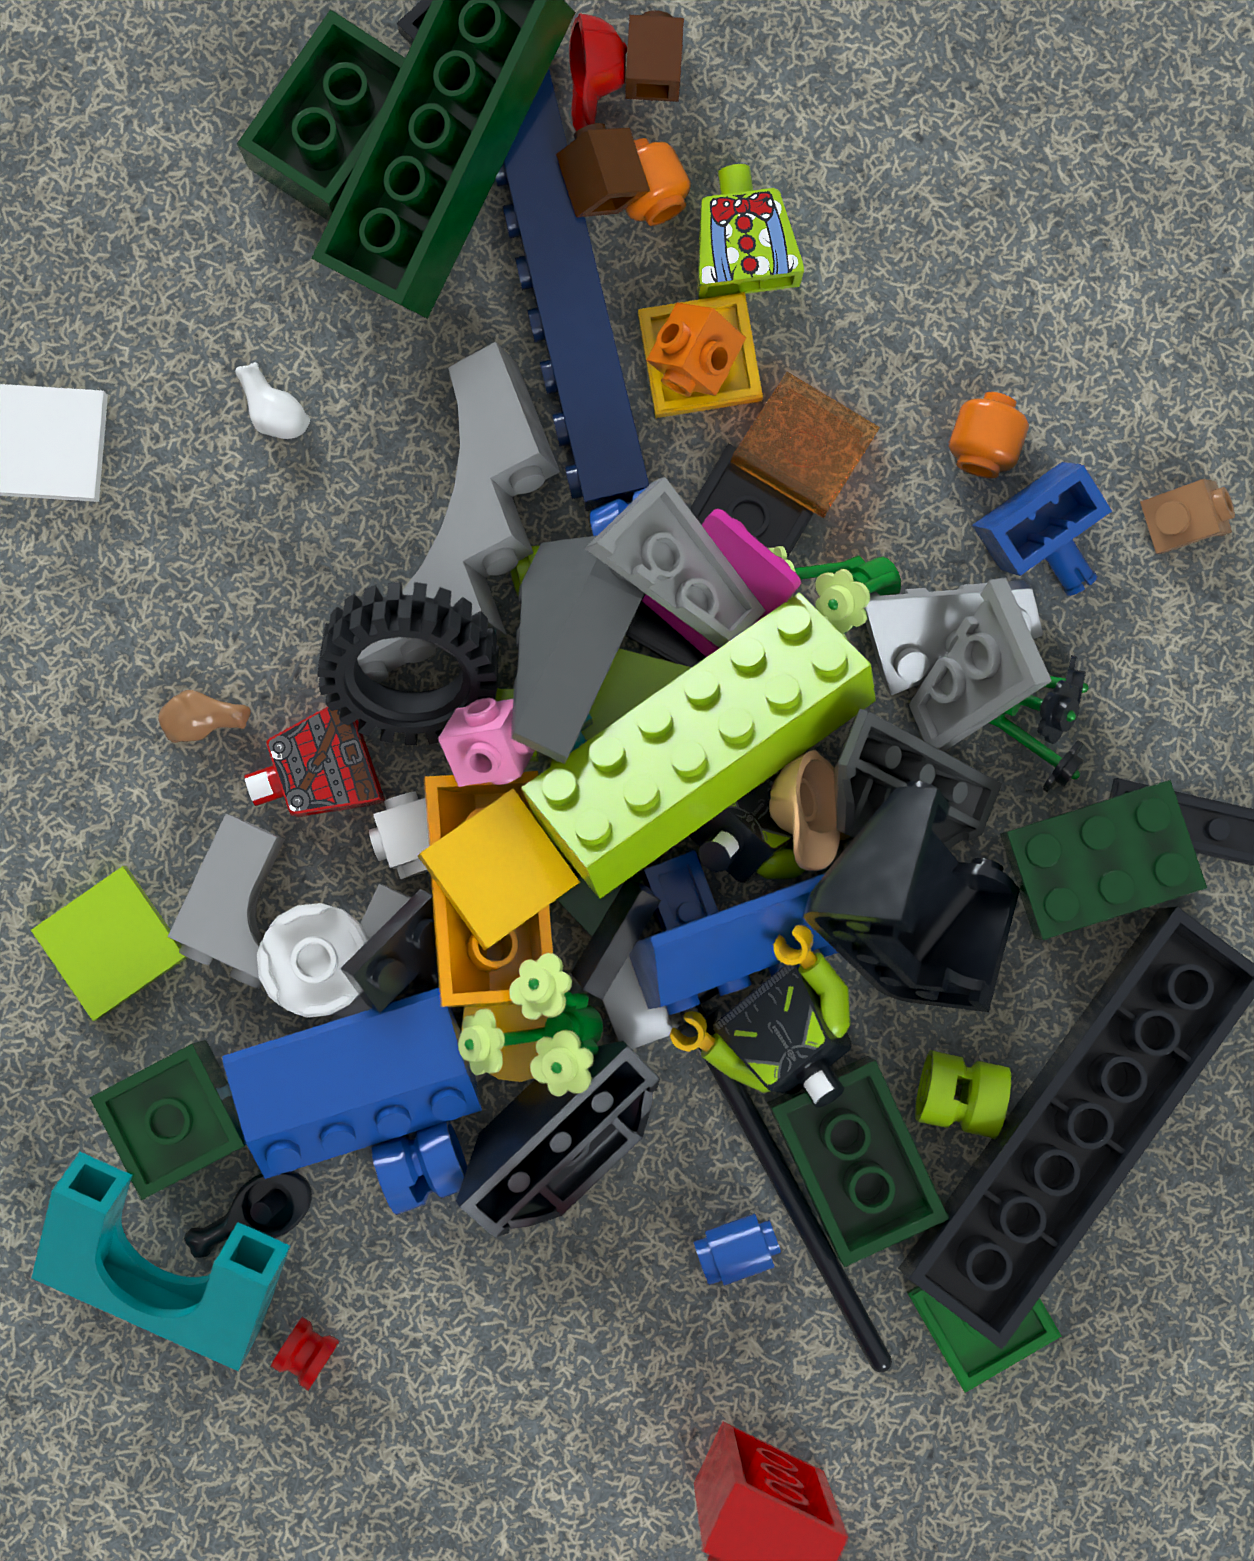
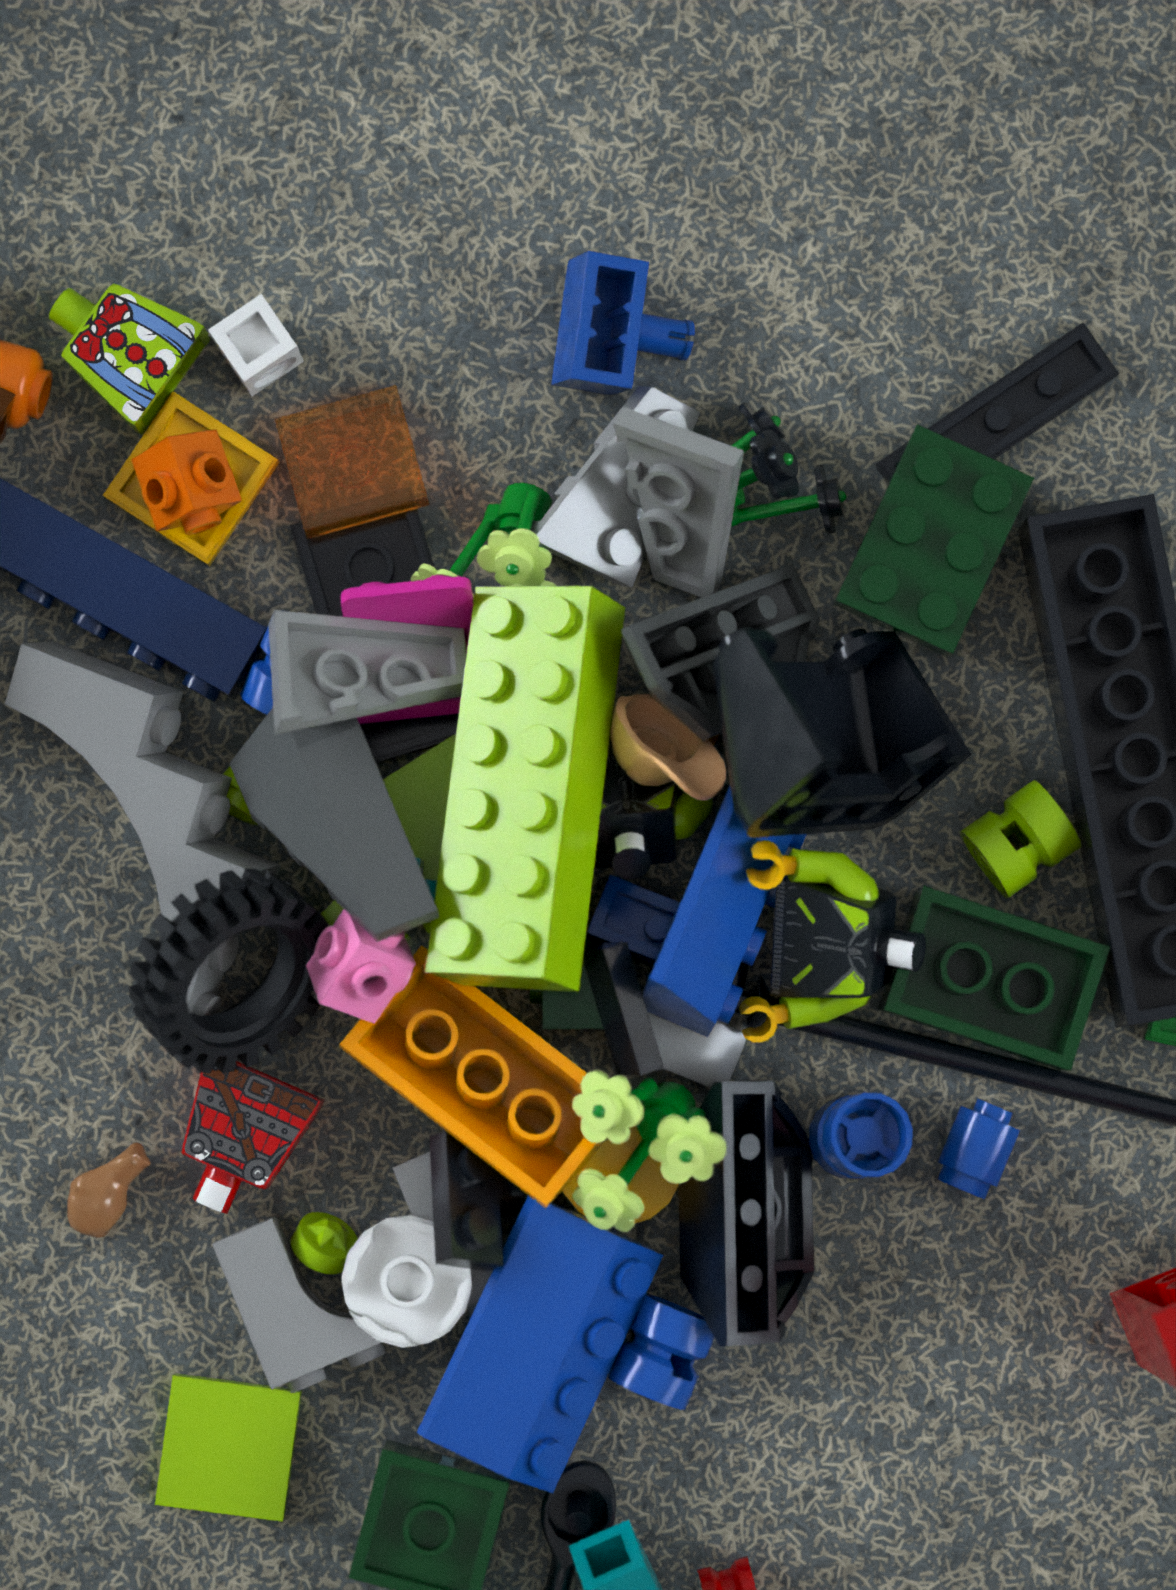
camera: 45 degrees left, 0 degrees up
(292, 883) = (323, 1242): none -> lime tile
(401, 834) = (369, 1109): white brick -> none
(498, 869) = (475, 1053): yellow tile -> none
(676, 1167) = (860, 1136): none -> blue wheel
(823, 314) = (256, 345): none -> white brick
(988, 435) = (488, 300): orange head -> none
(1188, 515) = (711, 196): medium nougat bracket -> none

